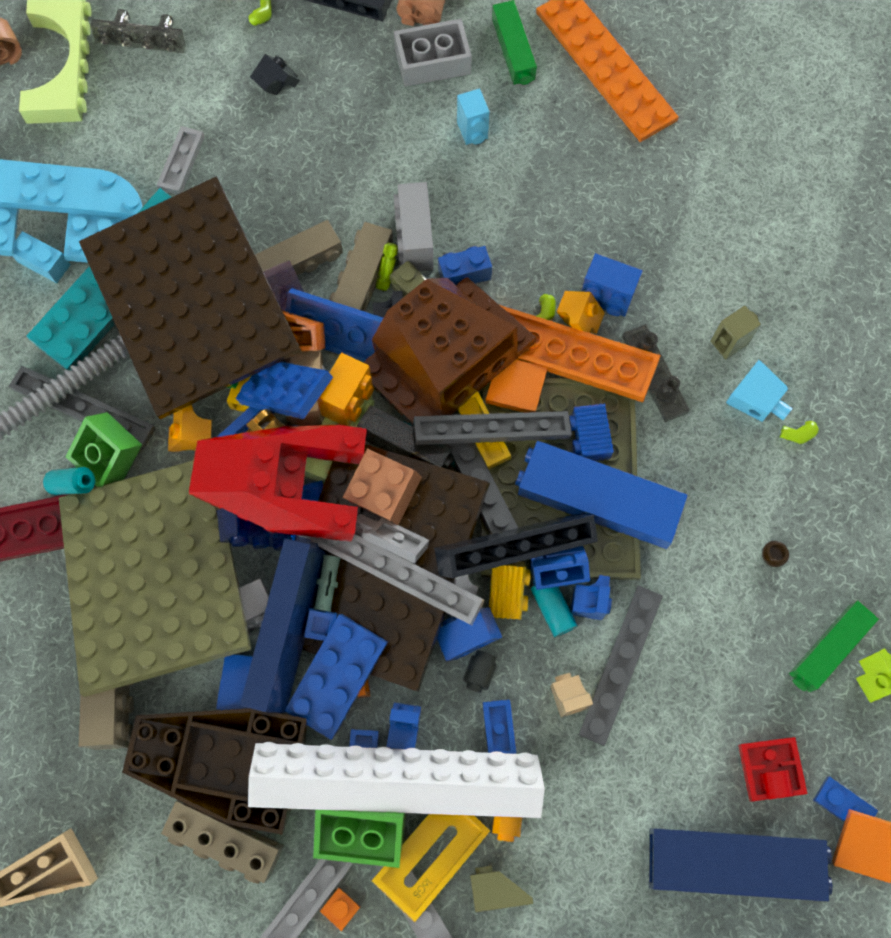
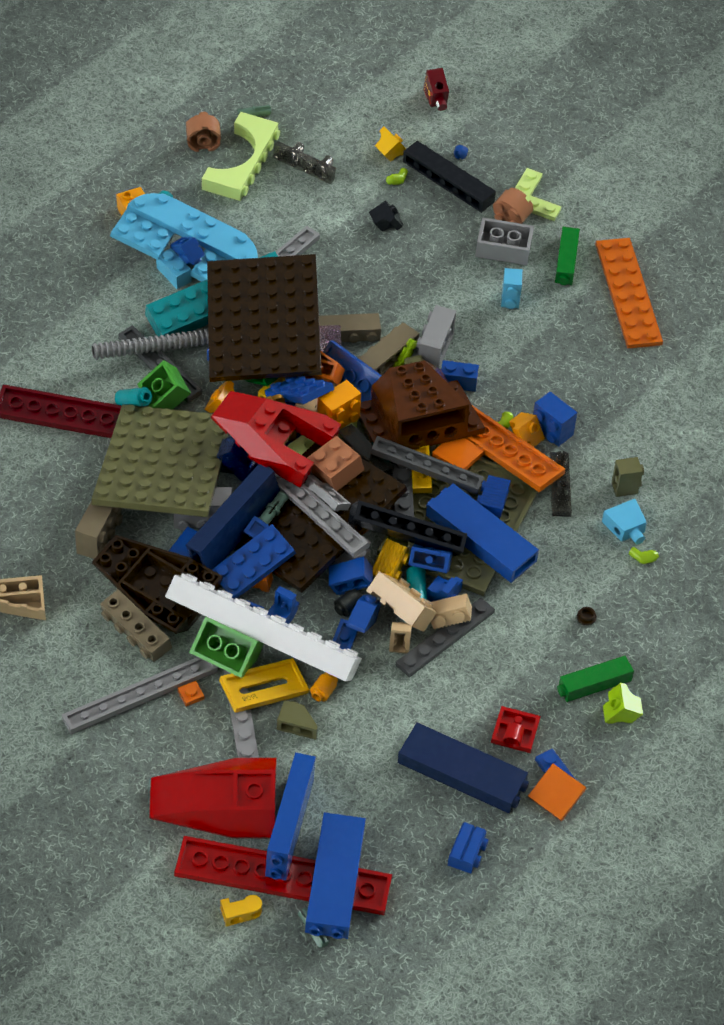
camera: 20 degrees right, 20 degrees down
(46, 228) = (188, 250): none -> blue brick
(512, 688) = (364, 613): none -> blue slope
(555, 648) = (403, 600): none -> tan wedge
(616, 633) = (451, 611): none -> tan brick

